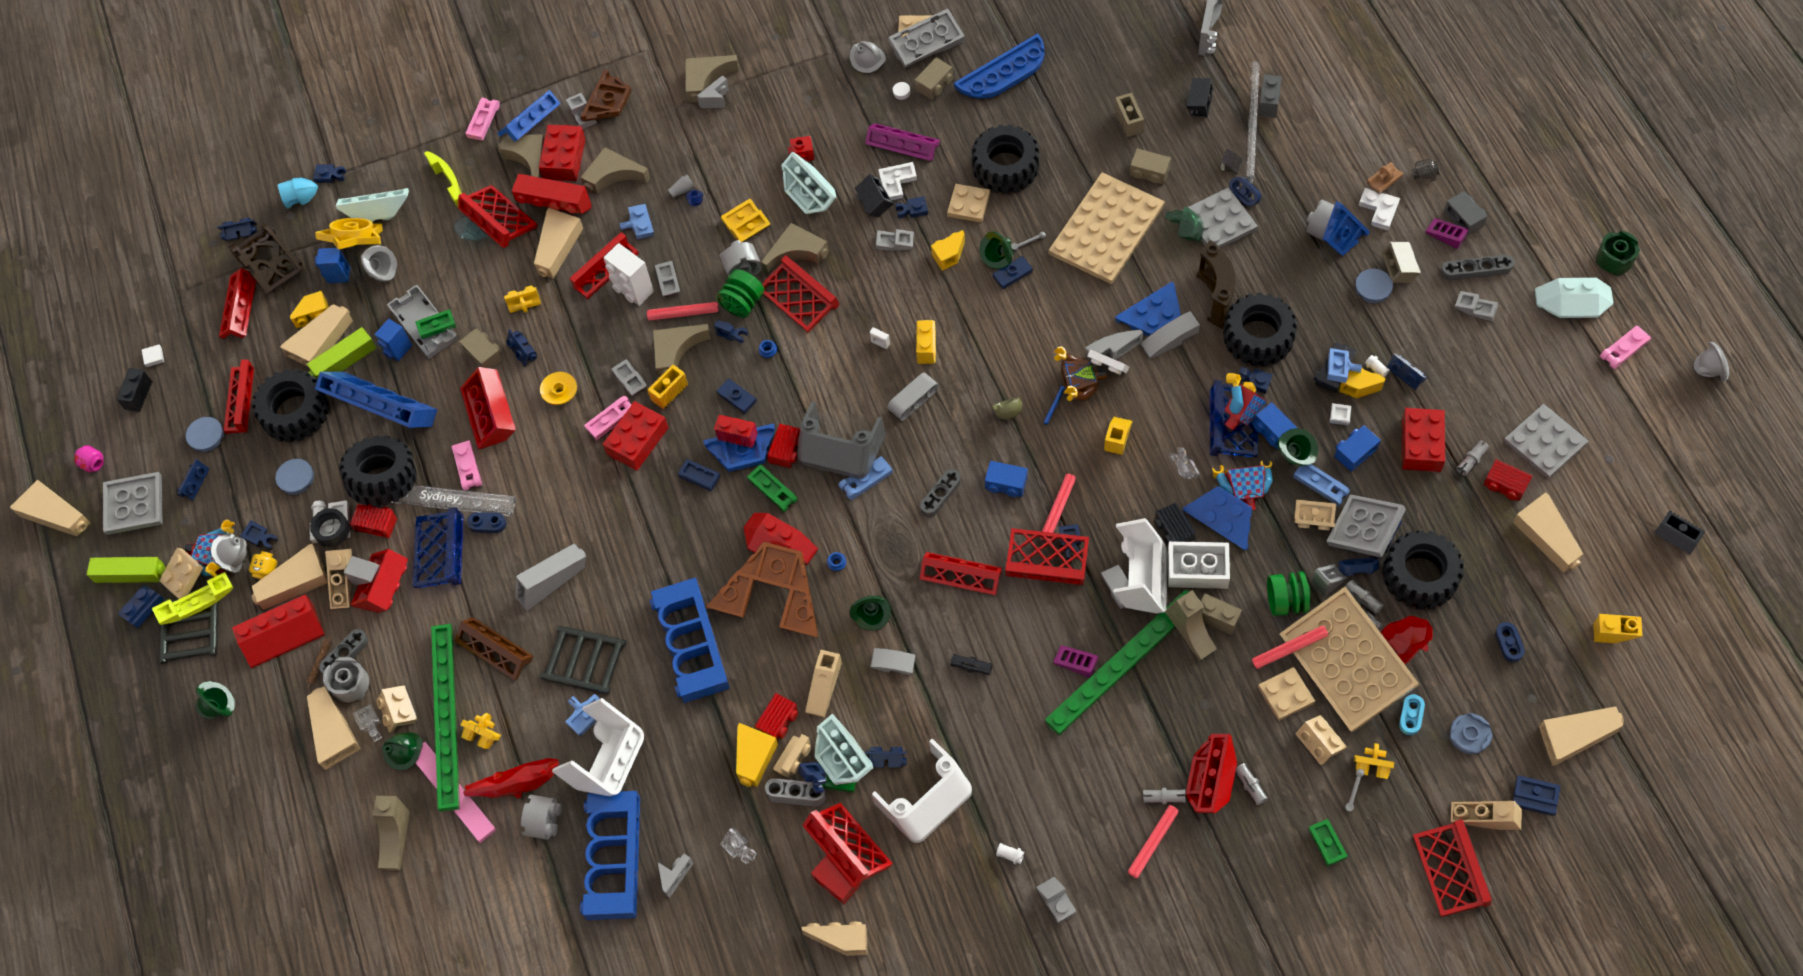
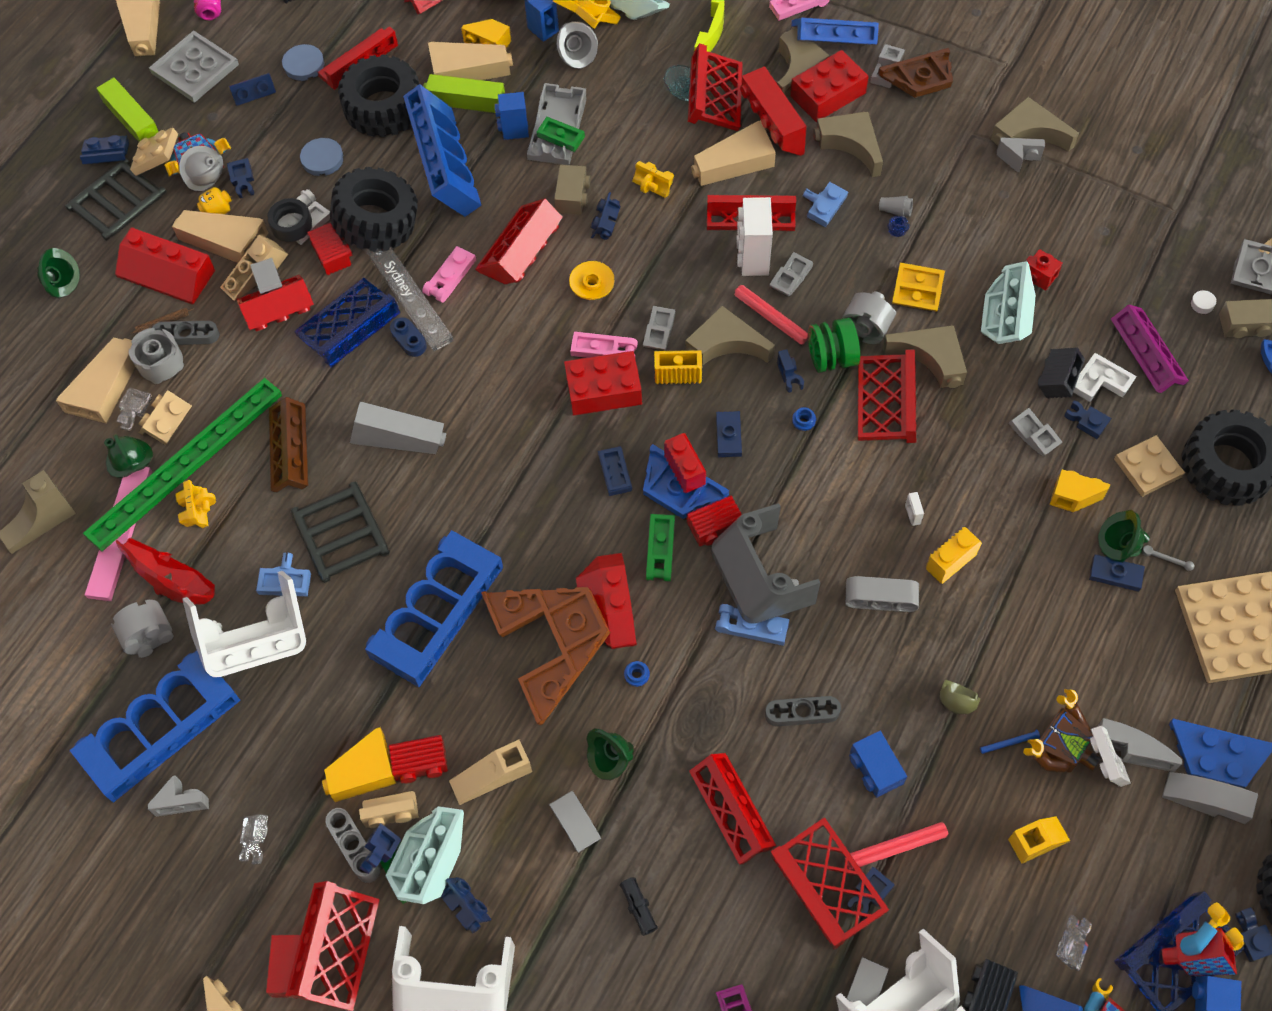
camera: 45 degrees right, 0 degrees up
(195, 602) = (134, 182): neon yellow slope -> none
(866, 57) = (1204, 241): light grey helmet -> none

